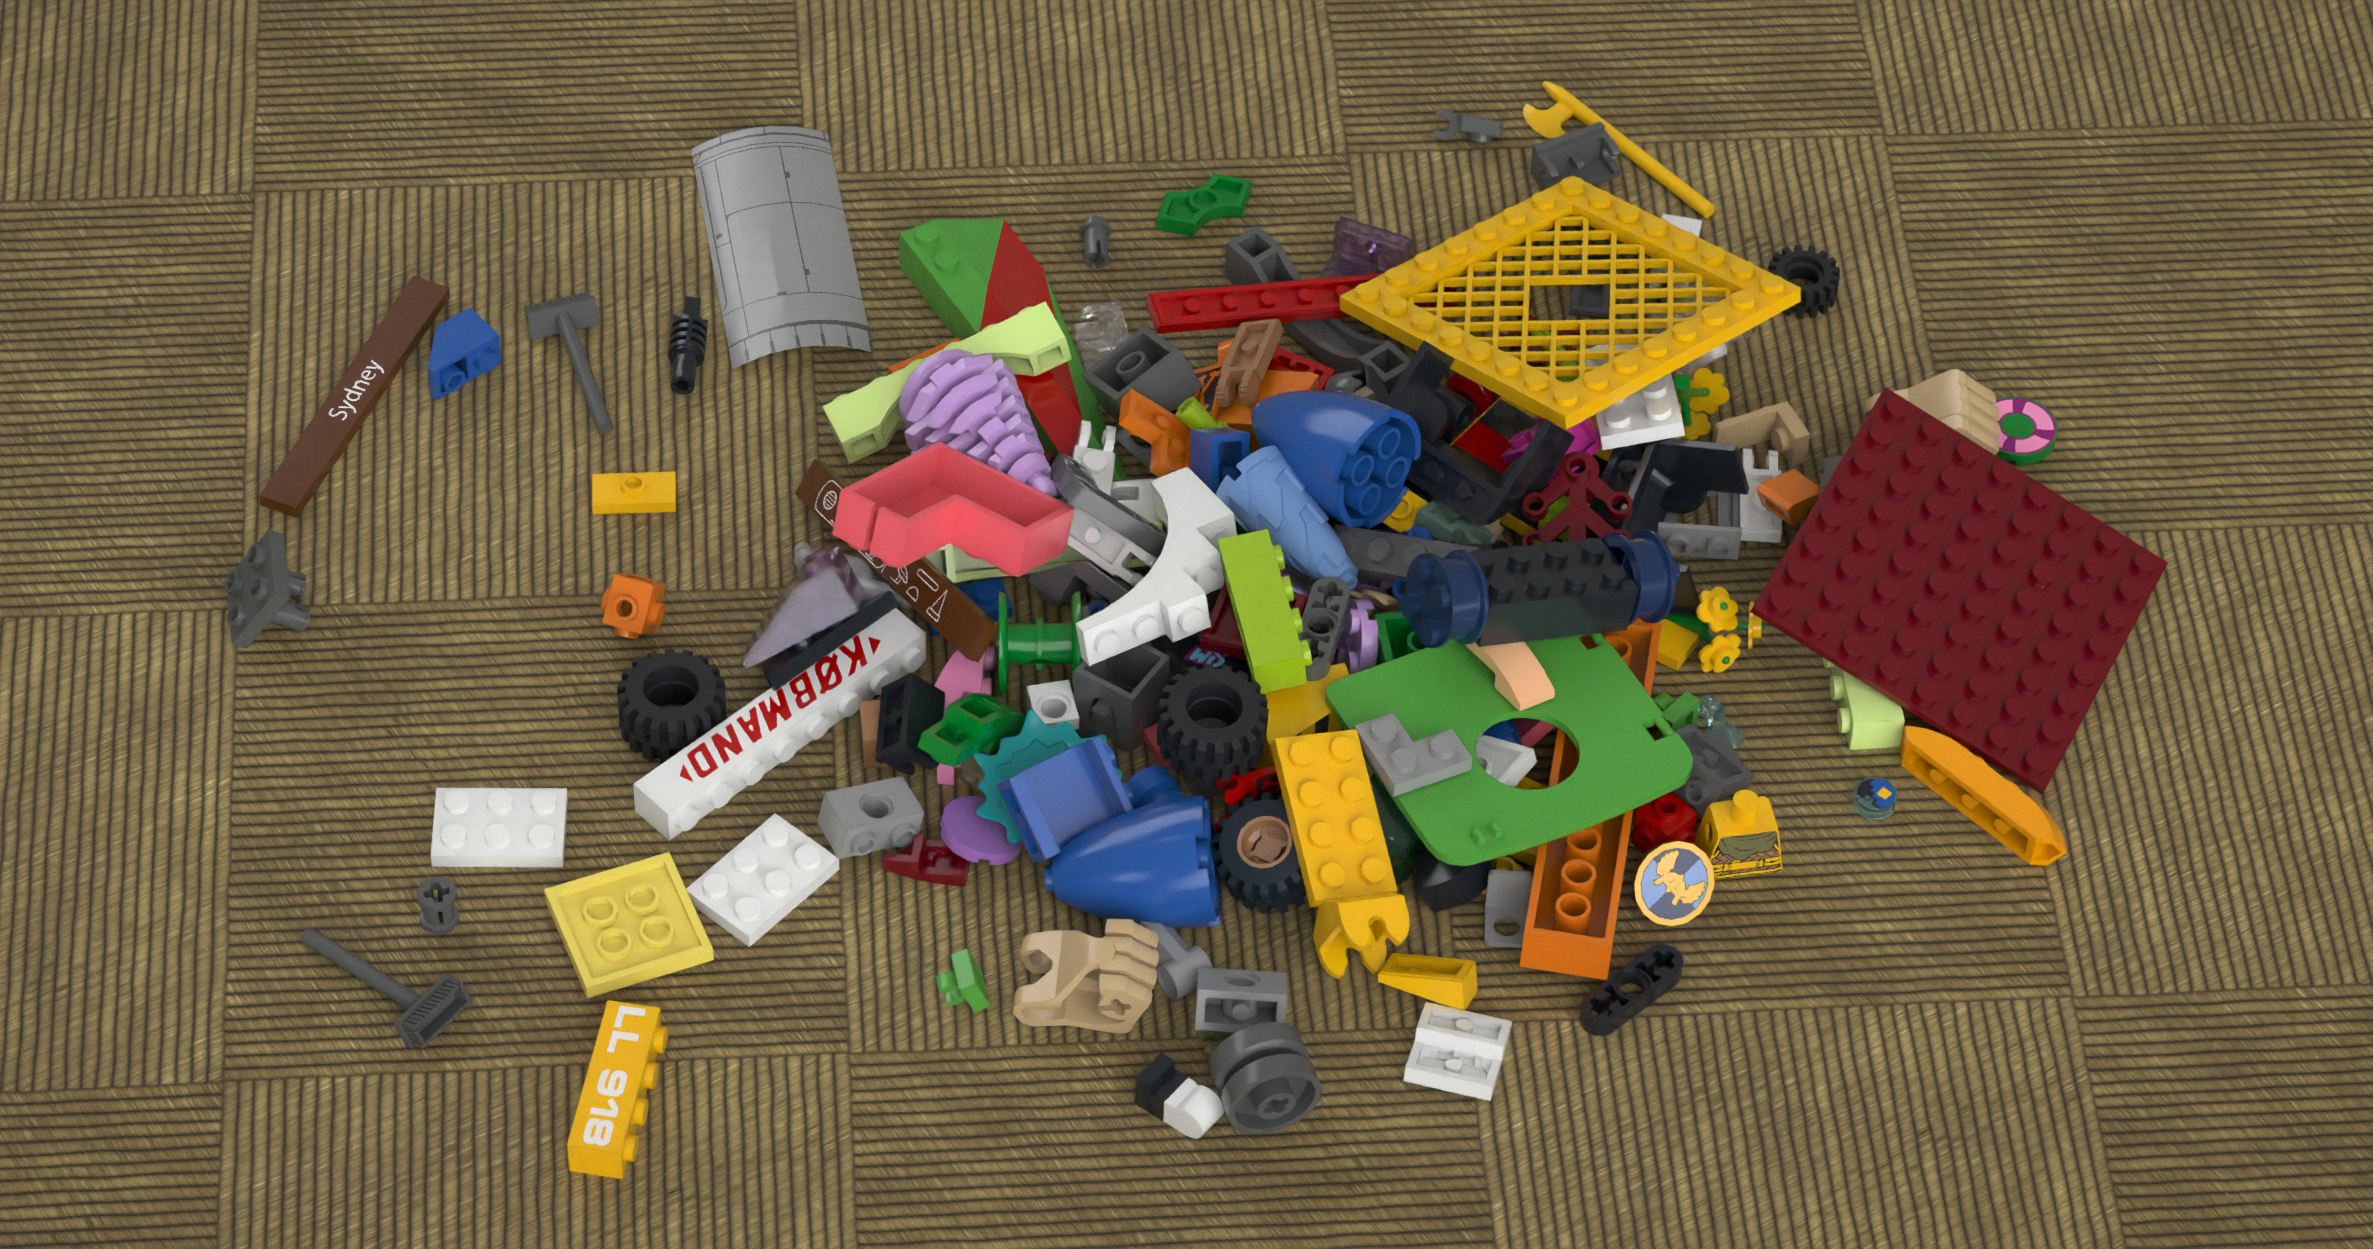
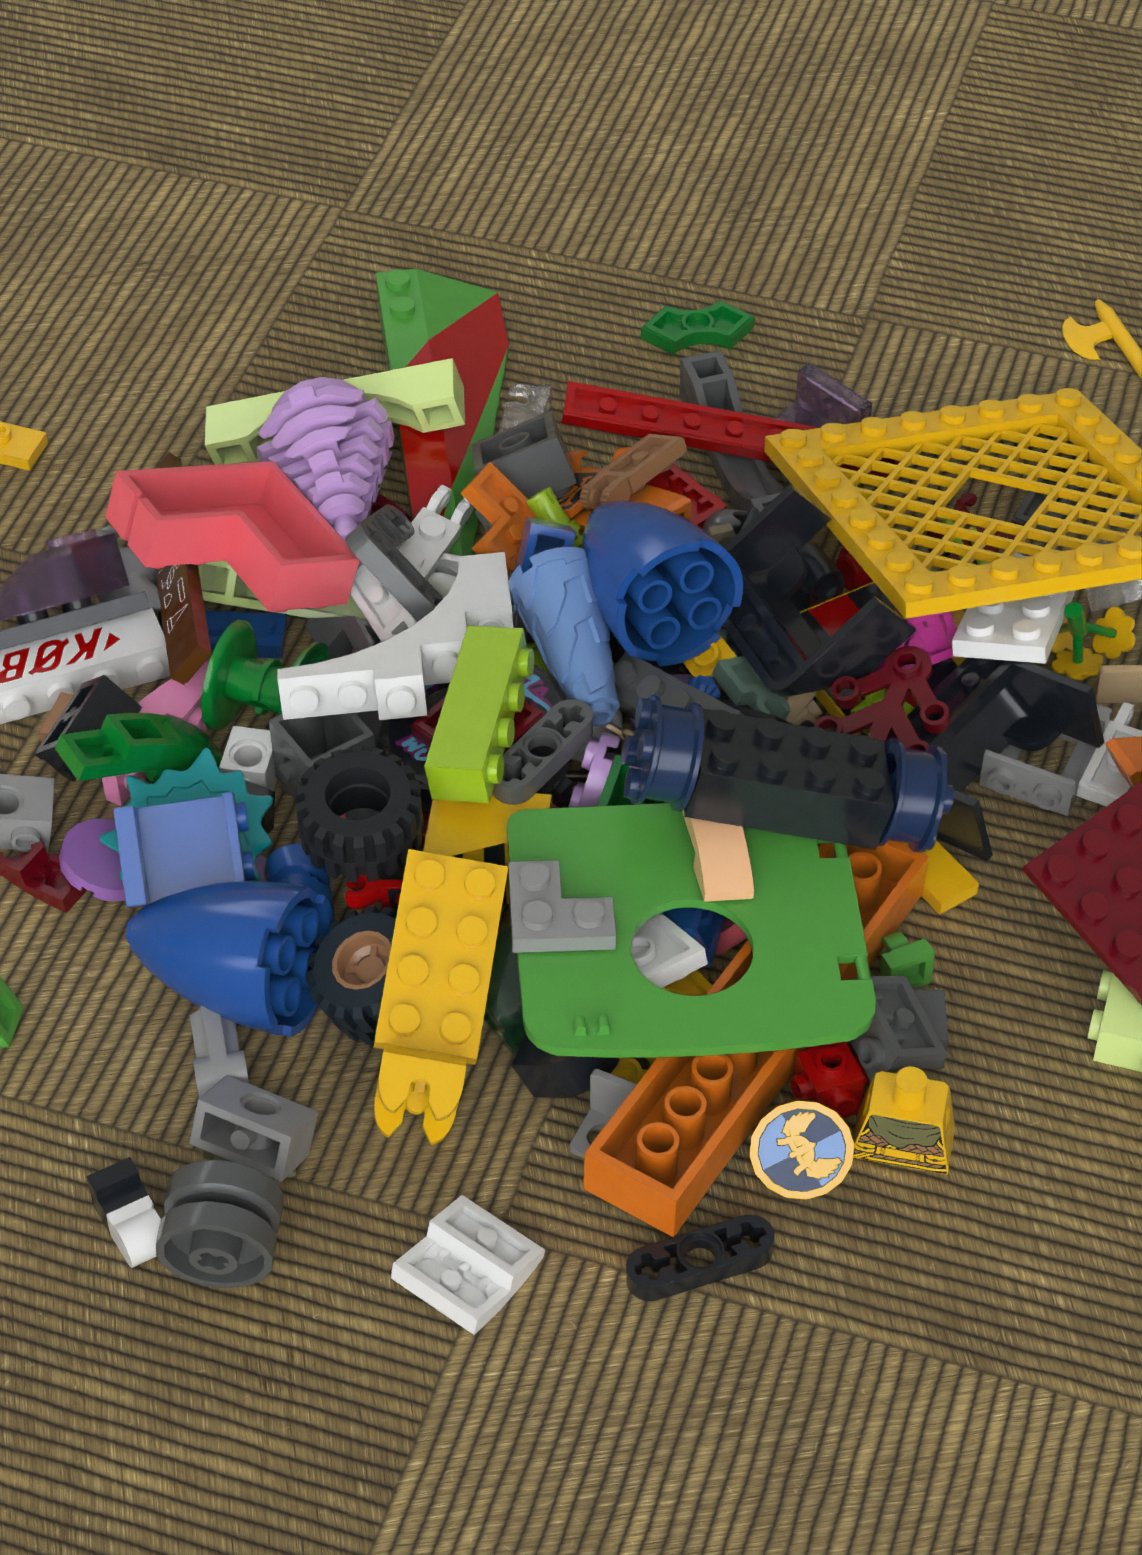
camera: 25 degrees right, 0 degrees up
(564, 318) = (33, 274): dark grey piece -> none
(687, 346) = (132, 324): black hinge -> none
(779, 242) = (281, 262): light grey sticker -> none
(1088, 978) = (113, 1053): tan piece -> none
(1095, 234) = (574, 324): dark grey pin -> none
(1434, 978) = (484, 1171): yellow slope -> none
(1478, 128) = (1006, 325): dark grey plate -> none
(1580, 153) = (1097, 372): dark grey hinge -> none
(1713, 713) = (952, 971): clear light blue piece -> none
(1718, 613) = (993, 863): yellow plant -> none
(1875, 798) = (1093, 1124): tile -> none

